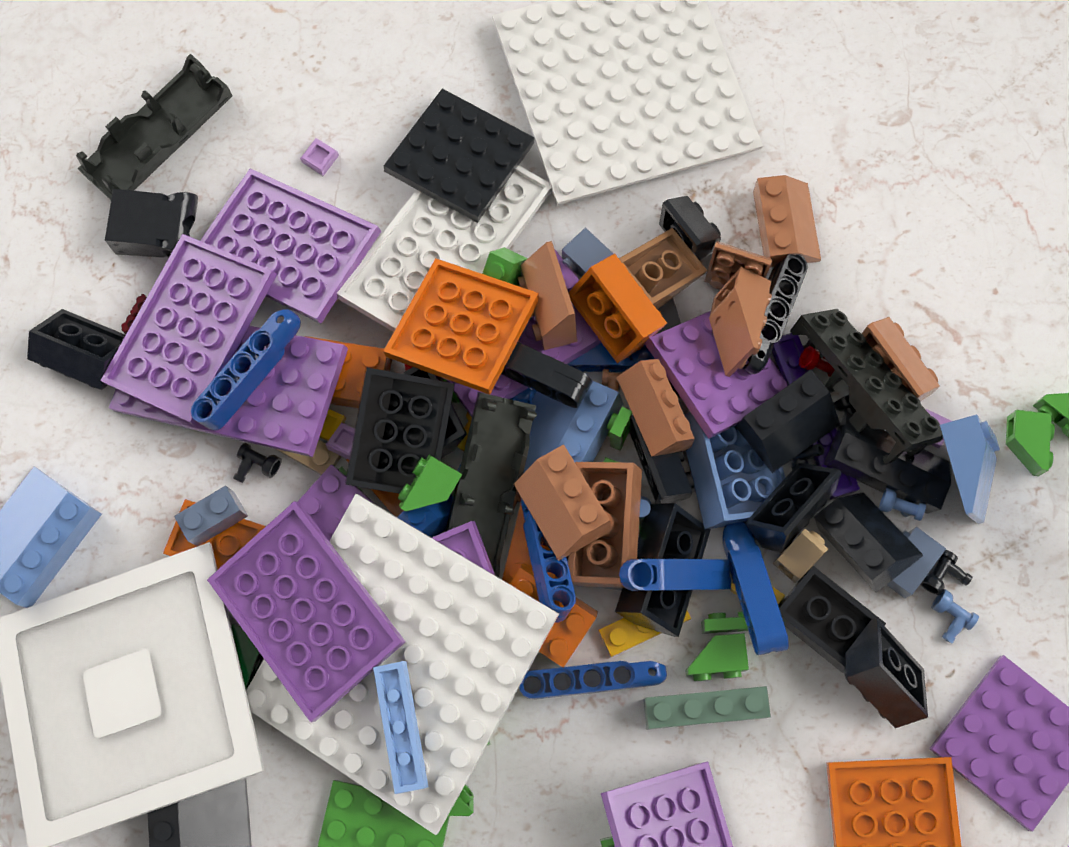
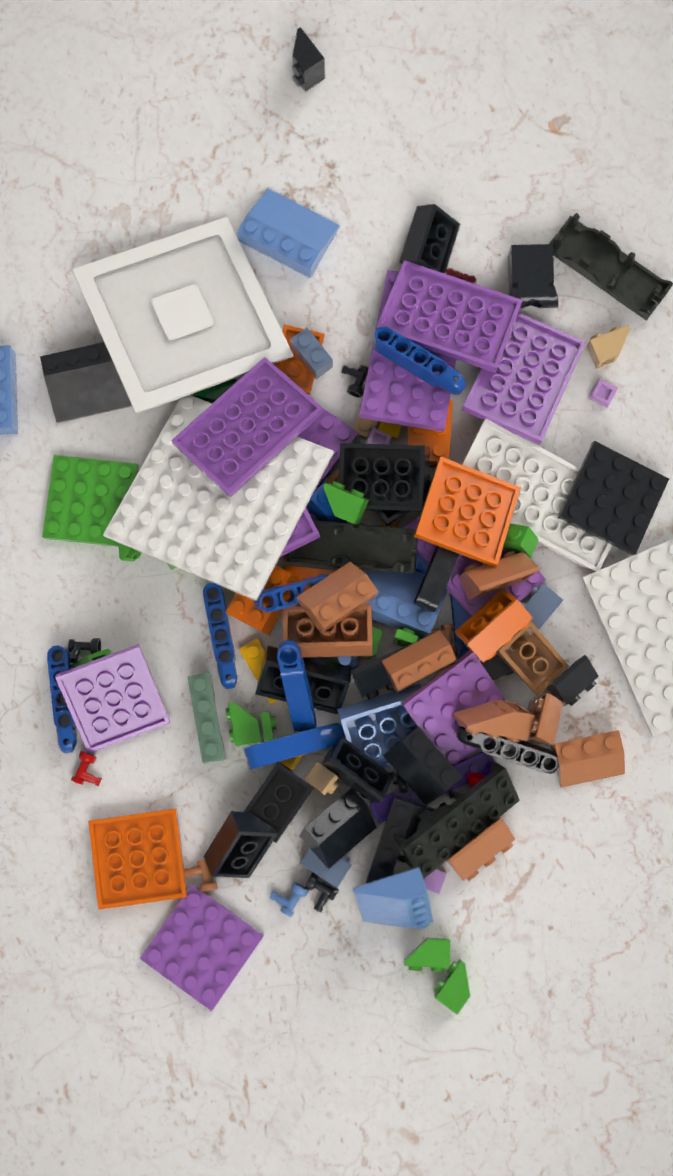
camera: 80 degrees right, 5 degrees up
(261, 142) = (607, 347): none -> tan slope
(400, 727) = (171, 501): light blue plate -> none
(890, 501) = (368, 845): medium blue piece -> none
(933, 725) = (202, 869): none -> nougat piece

